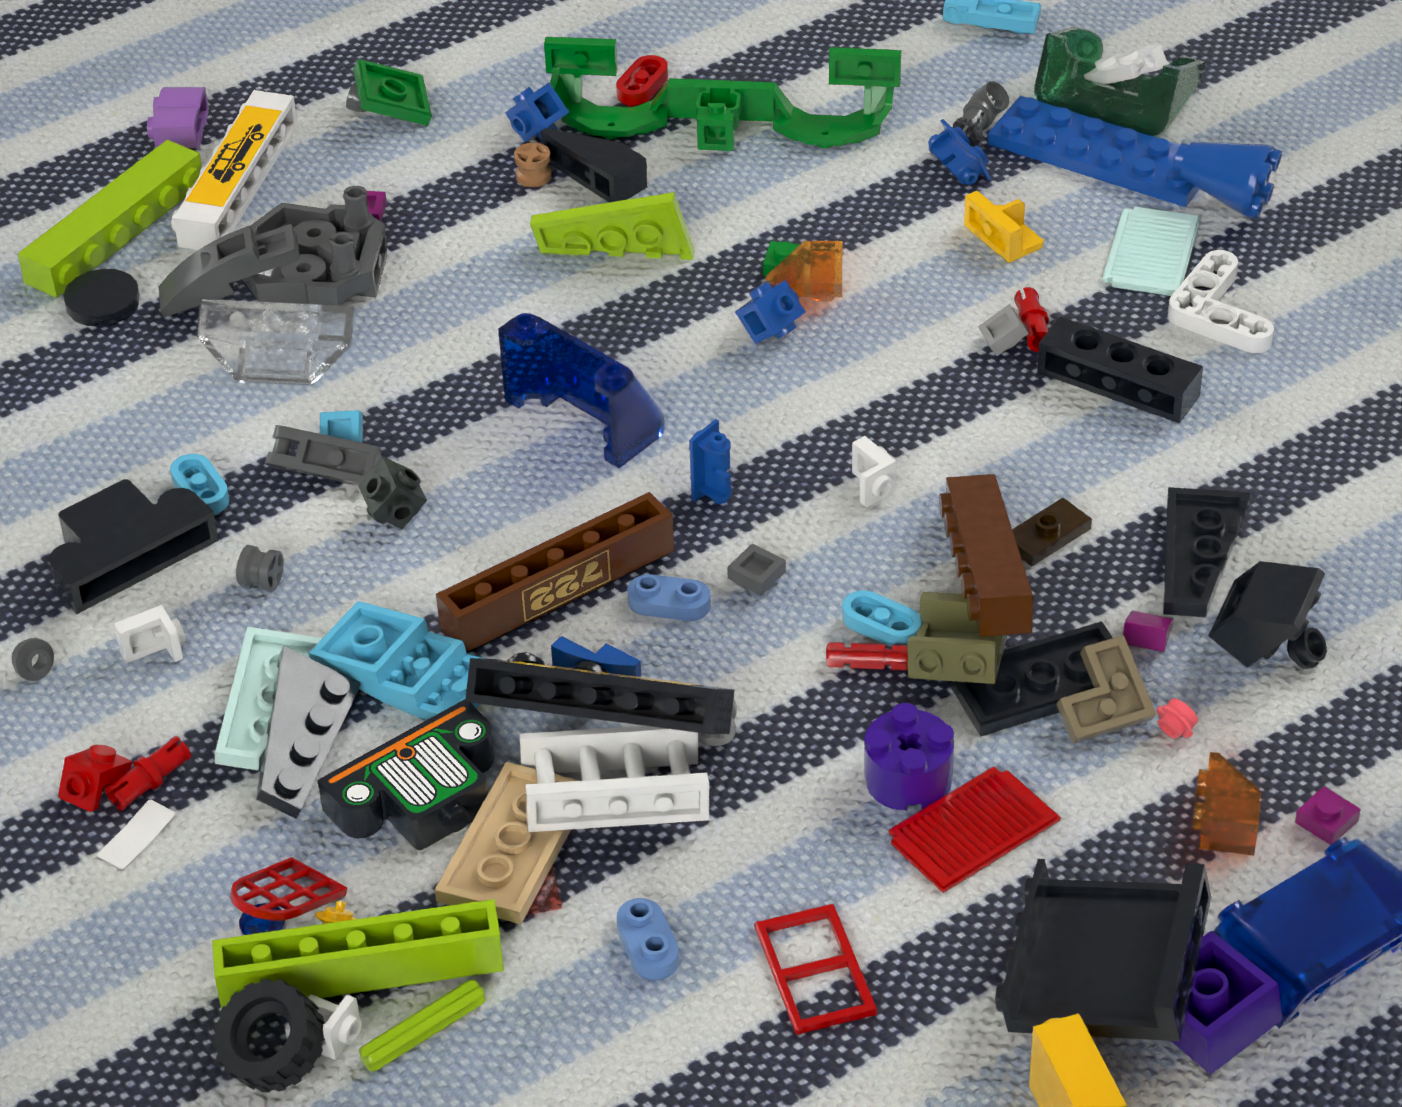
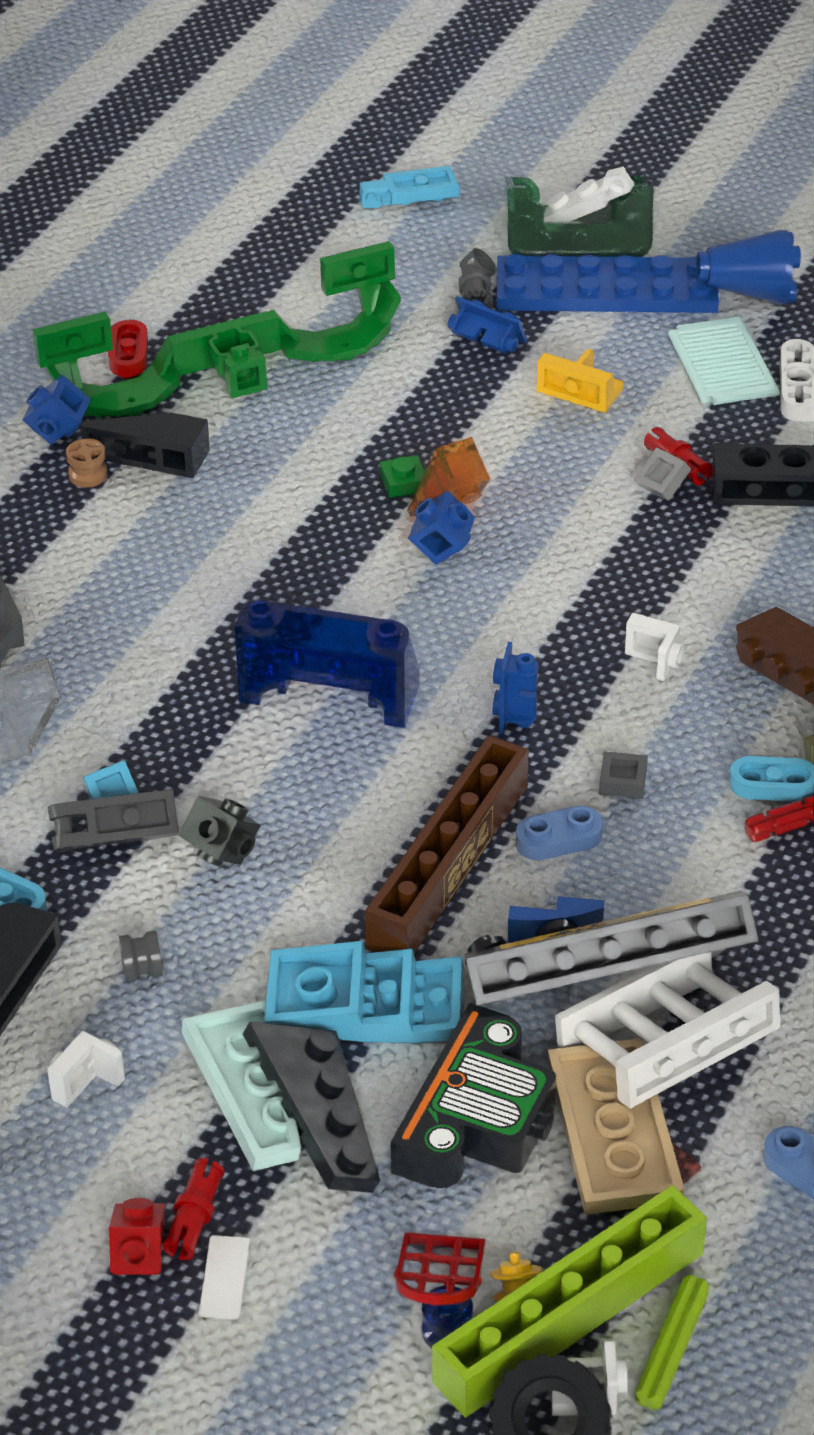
camera: 30 degrees left, 0 degrees up
(632, 225) = (242, 490): lime wing -> none

